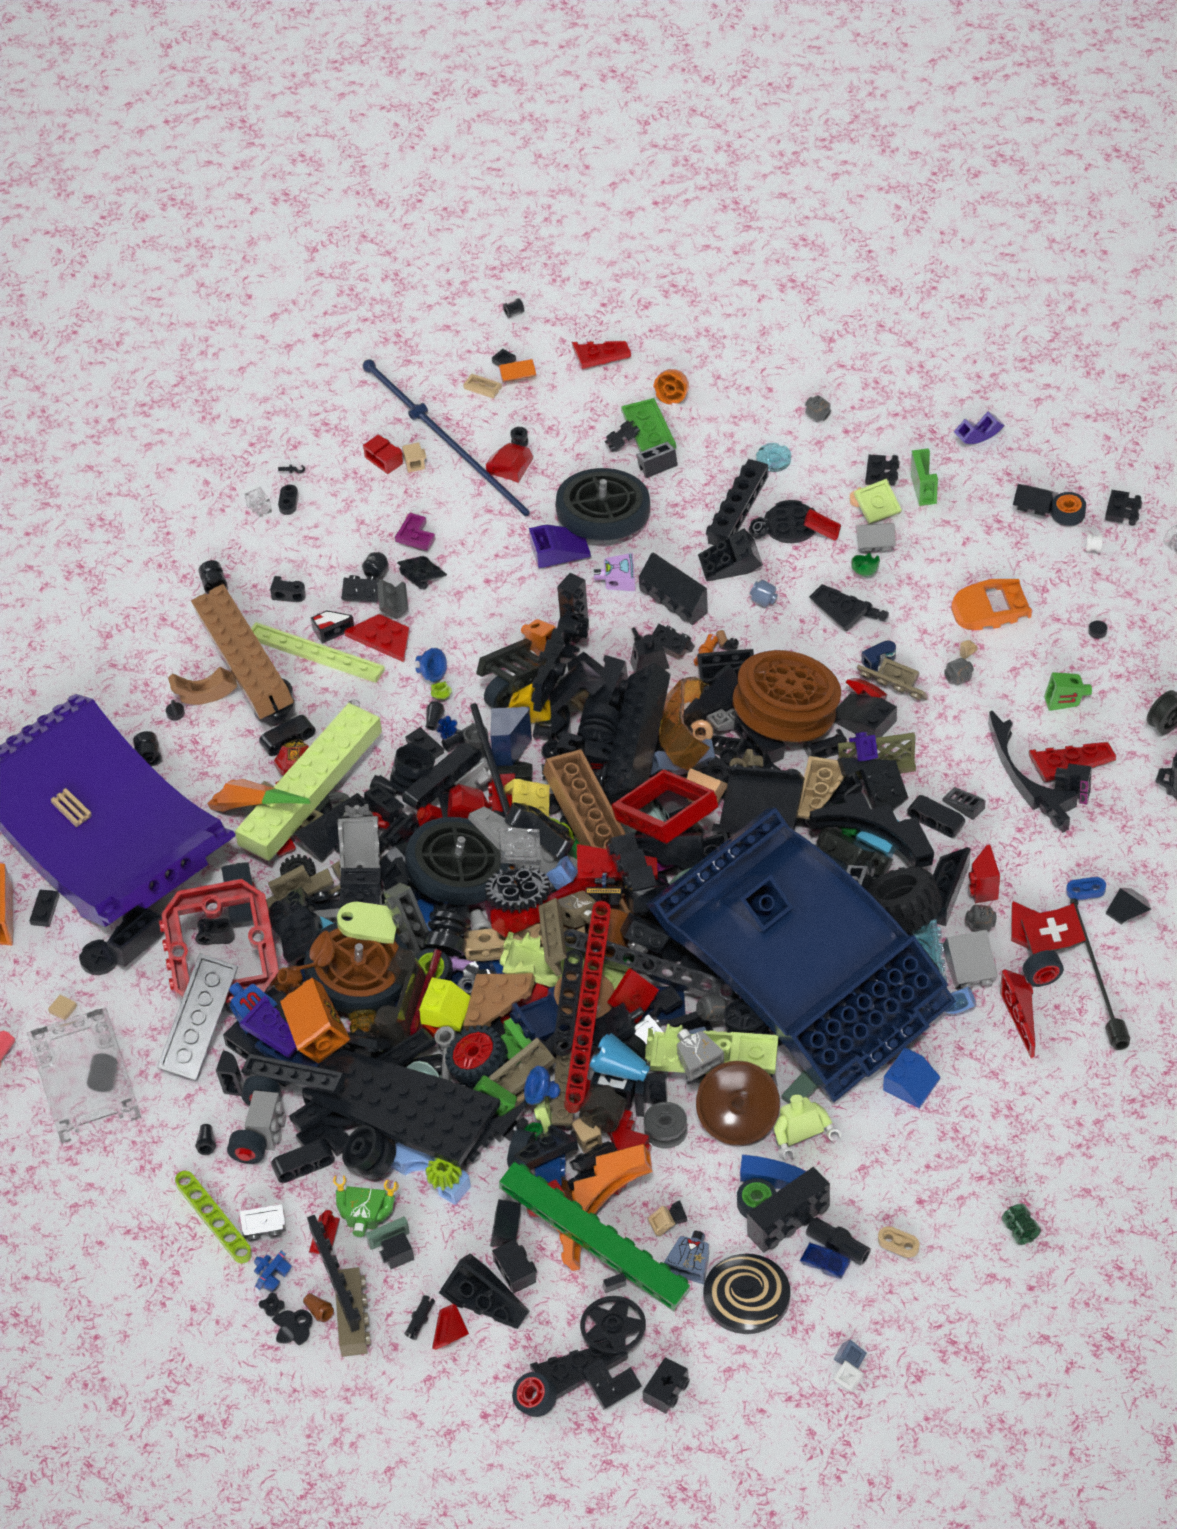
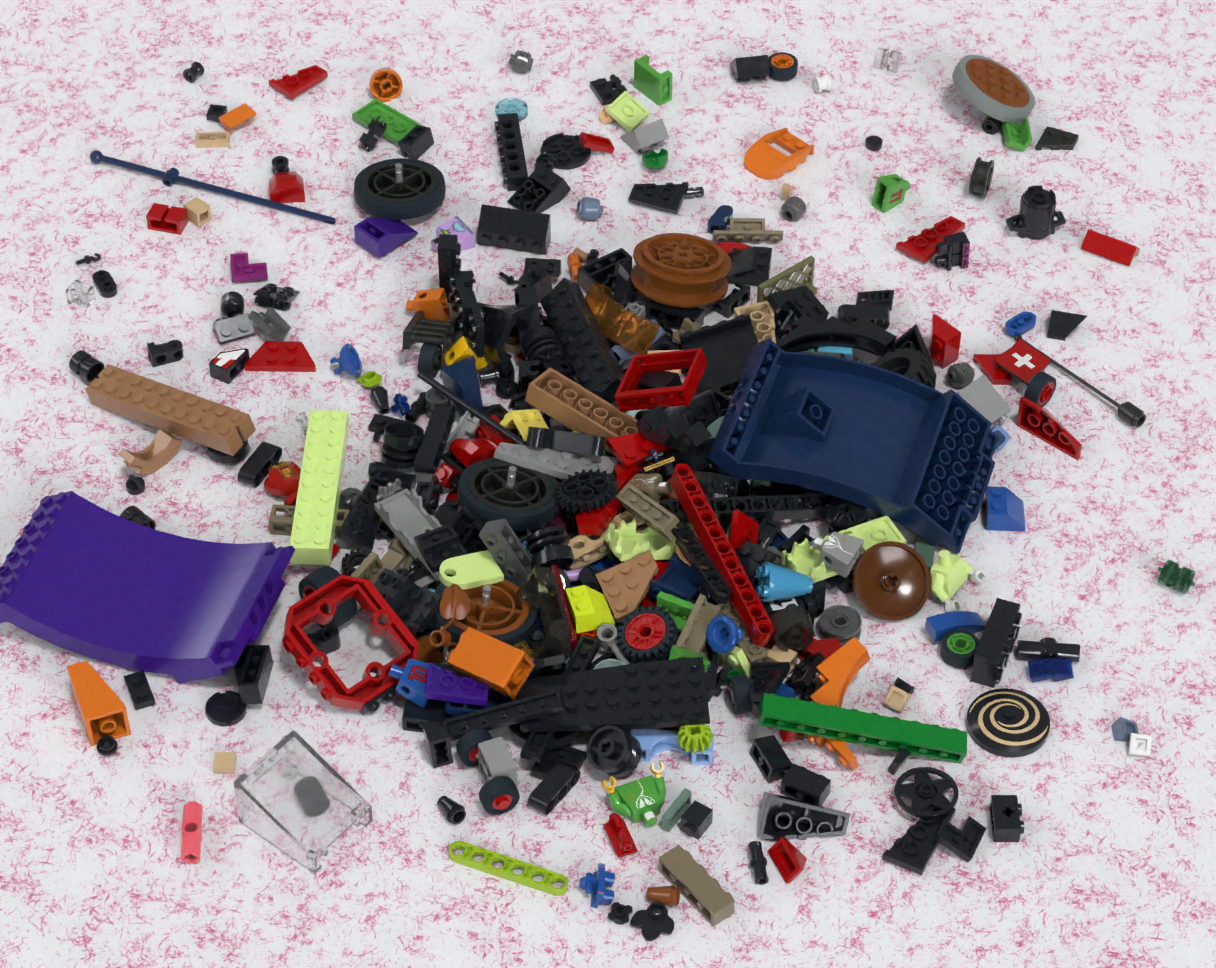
camera: 35 degrees left, 5 degrees down
(61, 797) = (115, 588): tan tile -> none
(197, 1017) = (372, 711): plate -> none
(246, 793) = (266, 519): orange plate -> none
(263, 1221) = (558, 850): bracket -> none
(318, 653) = (248, 390): yellowish green tile -> none
(337, 1279) = (665, 856): black plate -> none
(519, 846) = (560, 458): clear plate -> none
(524, 1390) = (916, 882): wheel -> none
(562, 873) = (611, 465): medium blue bracket -> none
(690, 1257) = (945, 712): sand blue torso -> none
(711, 1007) = (812, 520): dark grey head -> none
(865, 746) = (784, 278): dark purple bracket -> none
(899, 1241) = (1094, 631): tan plate -> none
(976, 433) = (666, 35): dark purple brick -> none
(1050, 801) = (941, 273): black slope -> none
(1117, 506) = (818, 54): black plate -> none

